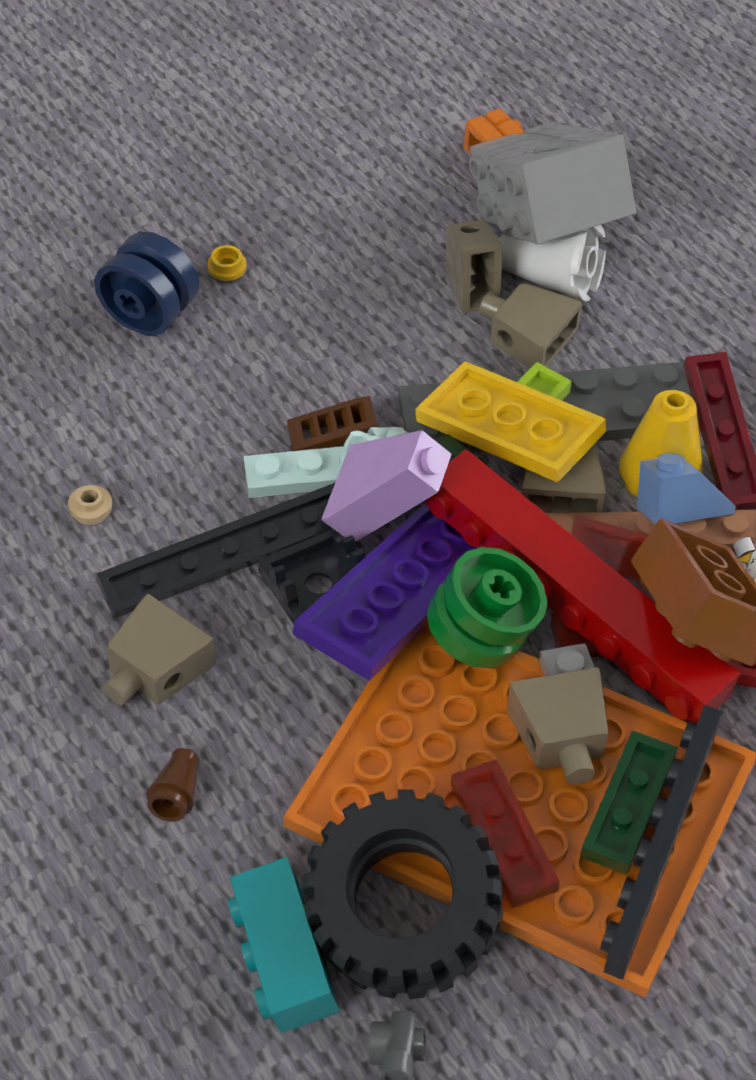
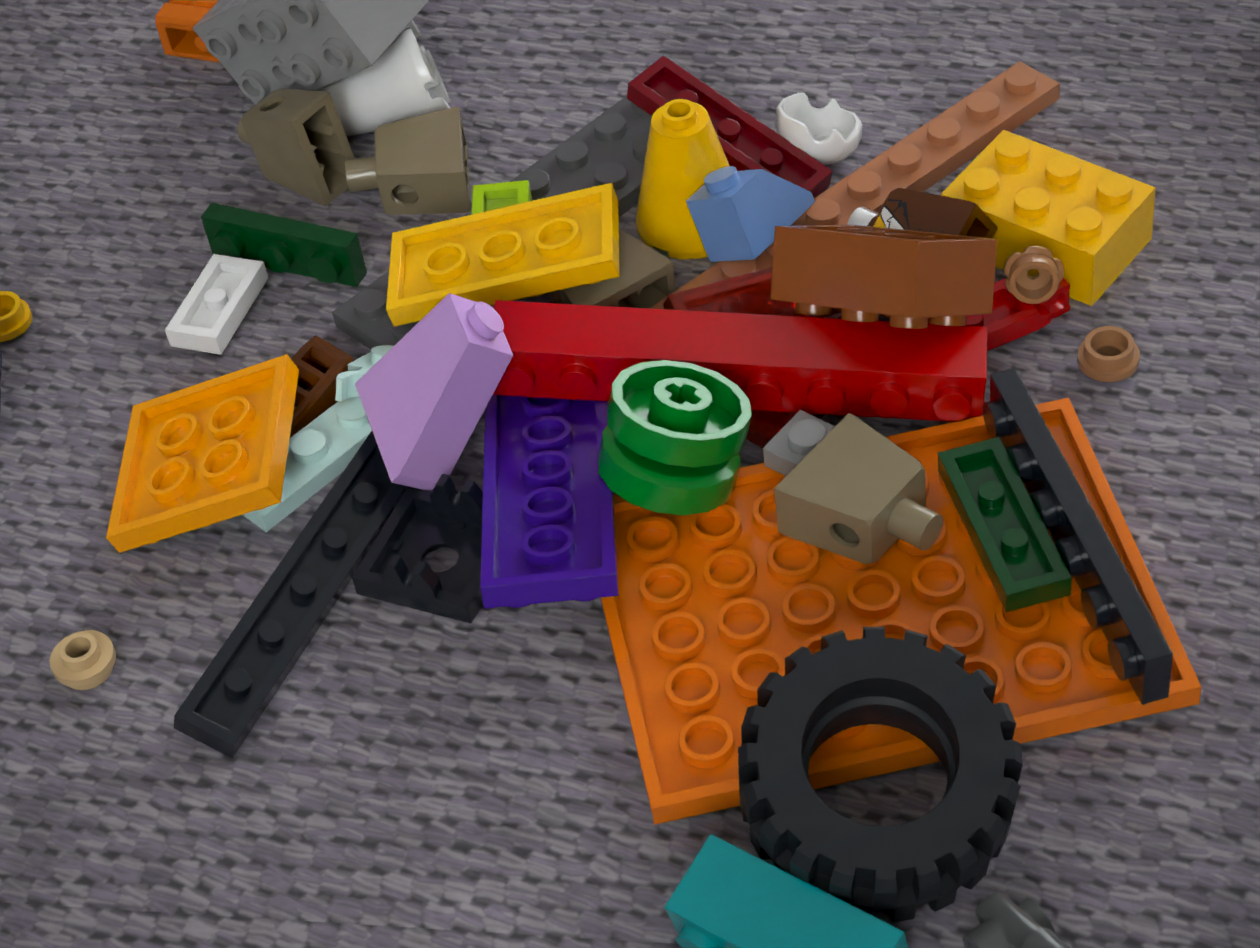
camera: 30 degrees left, 5 degrees down
(156, 654) = (329, 751): dark tan torso -> none
(174, 788) = (493, 876): reddish brown cone -> none
(248, 428) = (204, 454): none -> light orange plate
(342, 336) = (216, 304): none -> white plate
(409, 325) = (285, 244): none -> dark green plate
(493, 806) = (852, 608): clear red plate -> none

